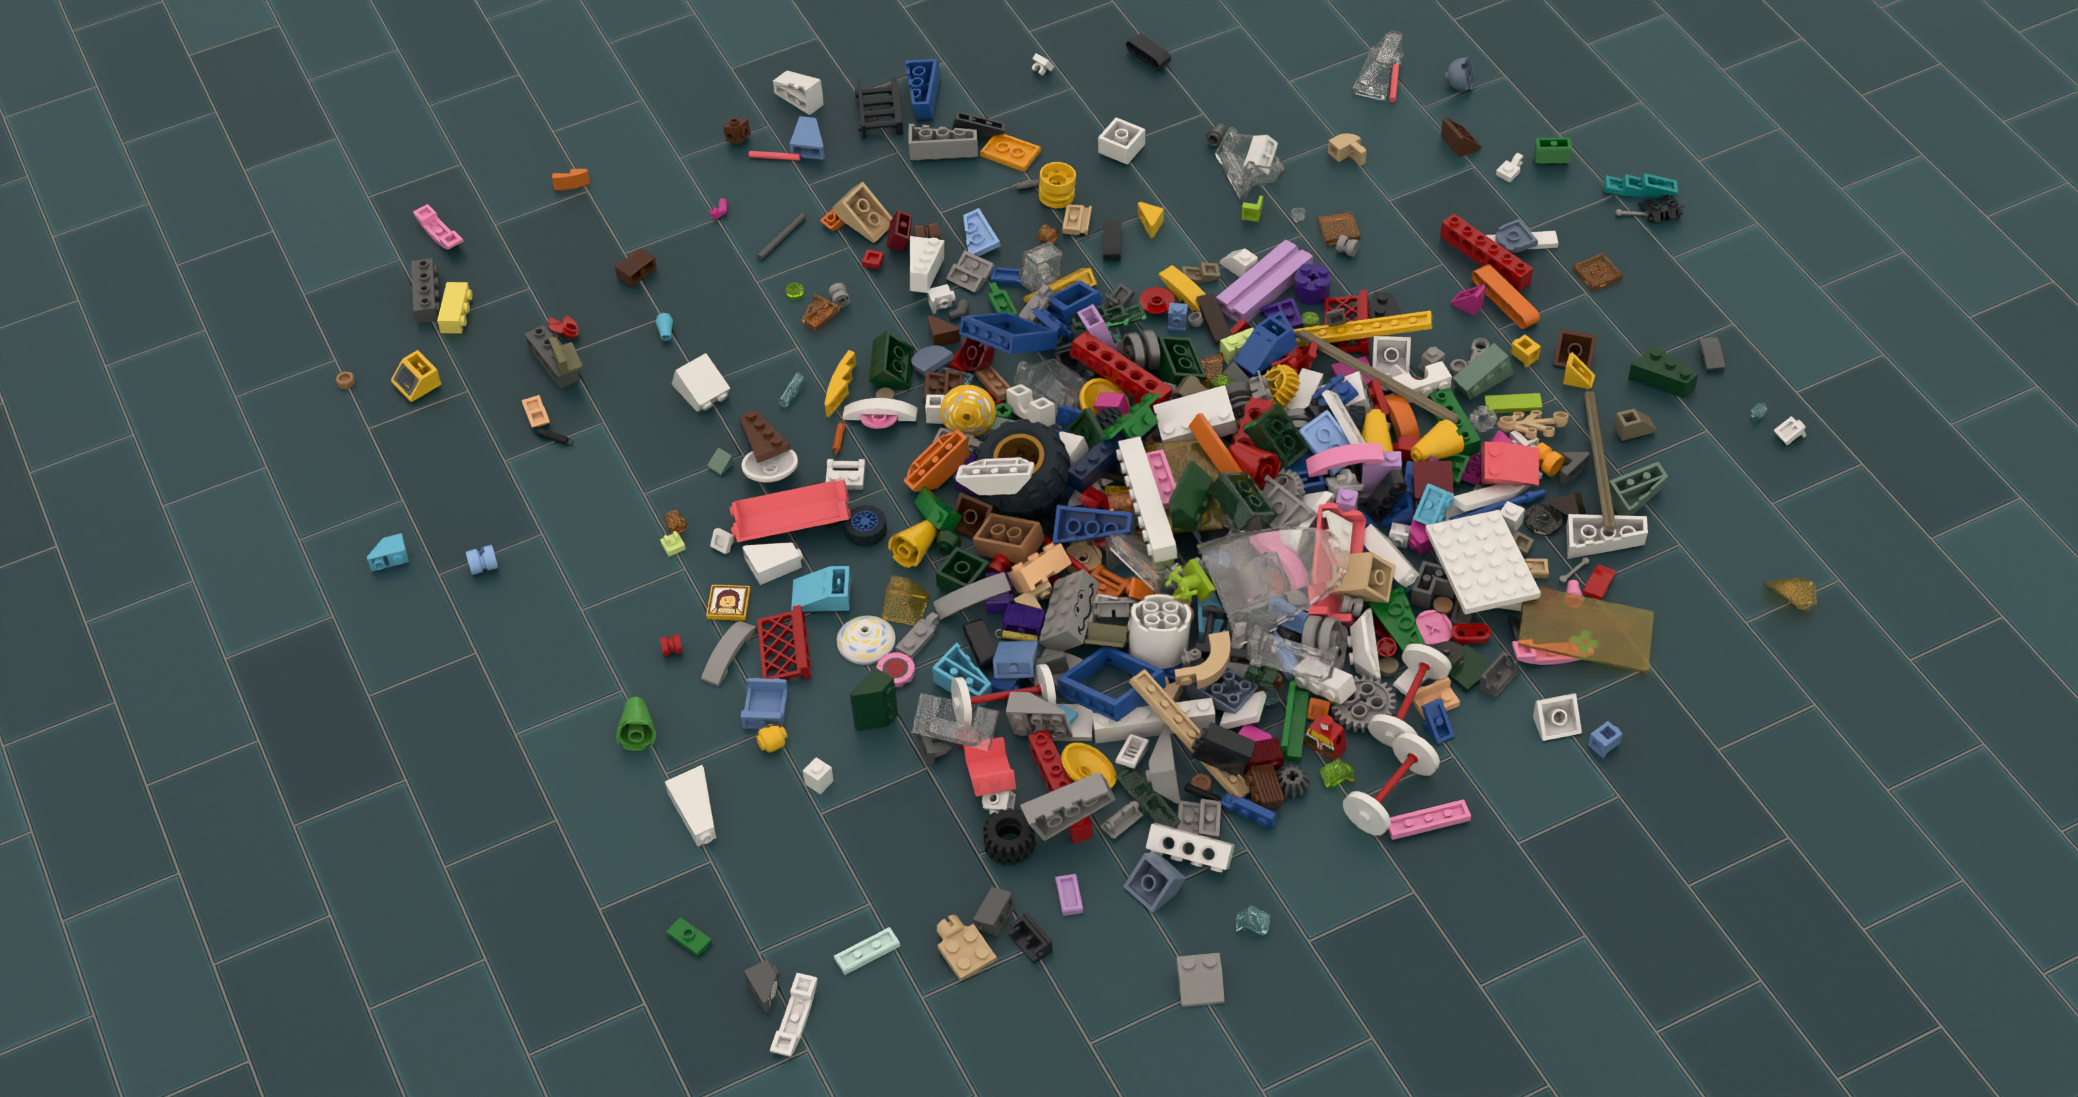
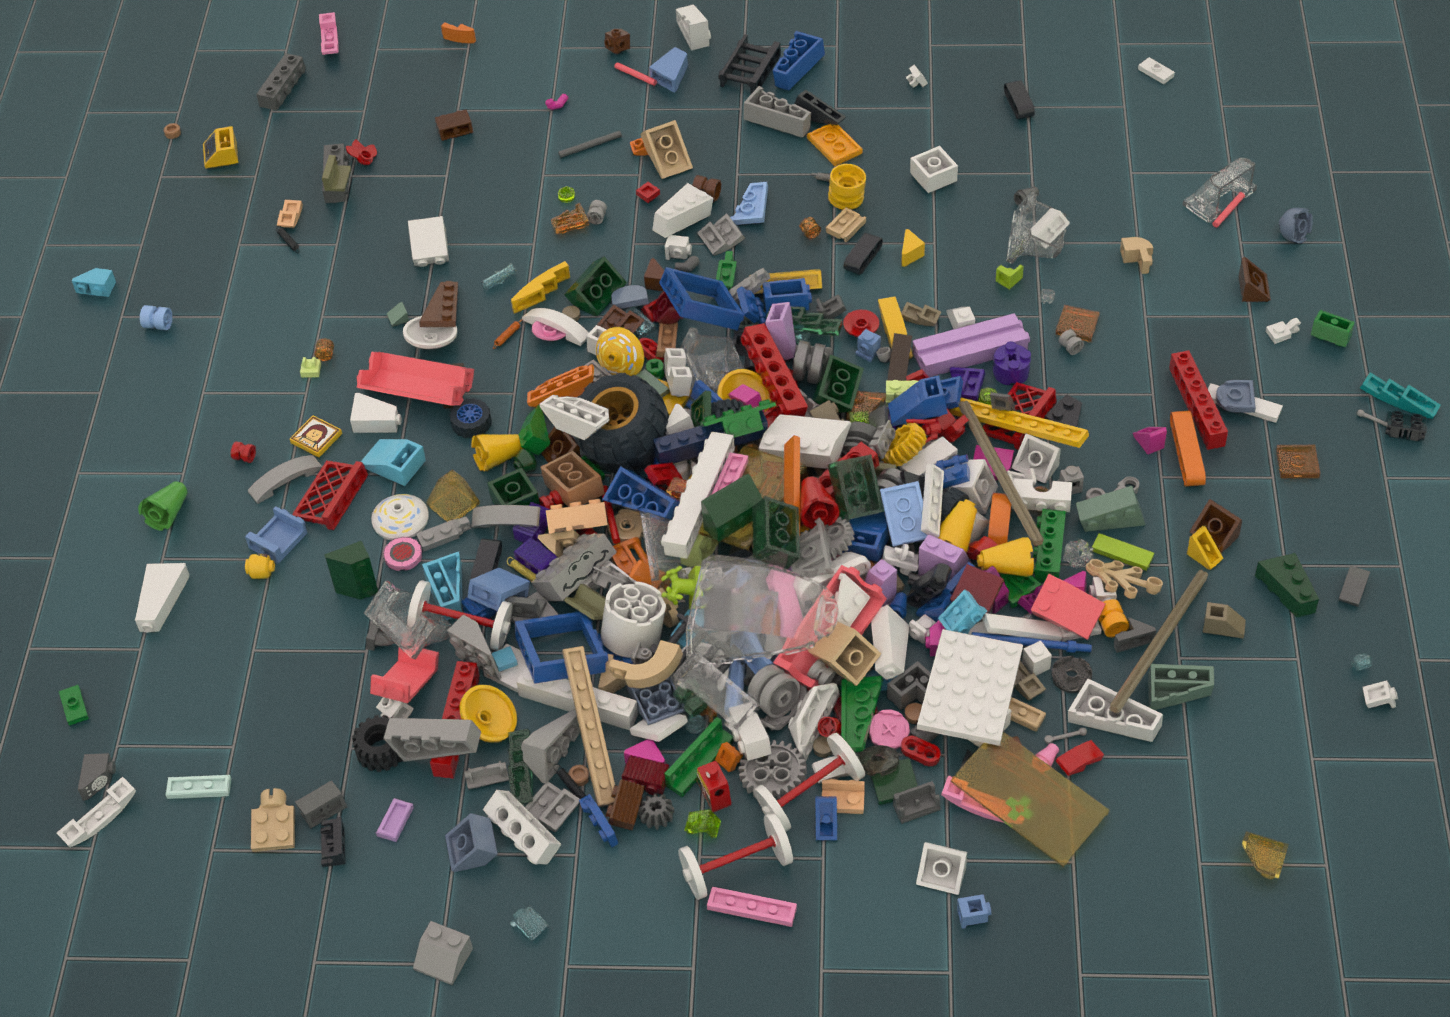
camera: 30 degrees right, 0 degrees up
(454, 307) = (292, 104): light yellow brick -> none
(664, 324) = (440, 181): medium azure cone -> none
(722, 540) = (348, 381): white tile -> none
(818, 775) = (270, 616): white brick -> none
(853, 479) = (489, 373): white plate -> none
(899, 231) = (684, 174): dark red brick -> none
(1005, 276) = (752, 252): blue tile -> none
(1040, 266) = (777, 251): clear brick -> none
(1132, 751) = (538, 711): white slope -> none
(1222, 748) = (602, 750): black brick -> none
(1344, 455) = (906, 531): bright pink slope -> none
(1376, 394) = (987, 486): red plate -> none
(1525, 350) = (1169, 507): yellow brick -> none
(1569, 504) = (1103, 671): dark brown slope -> none

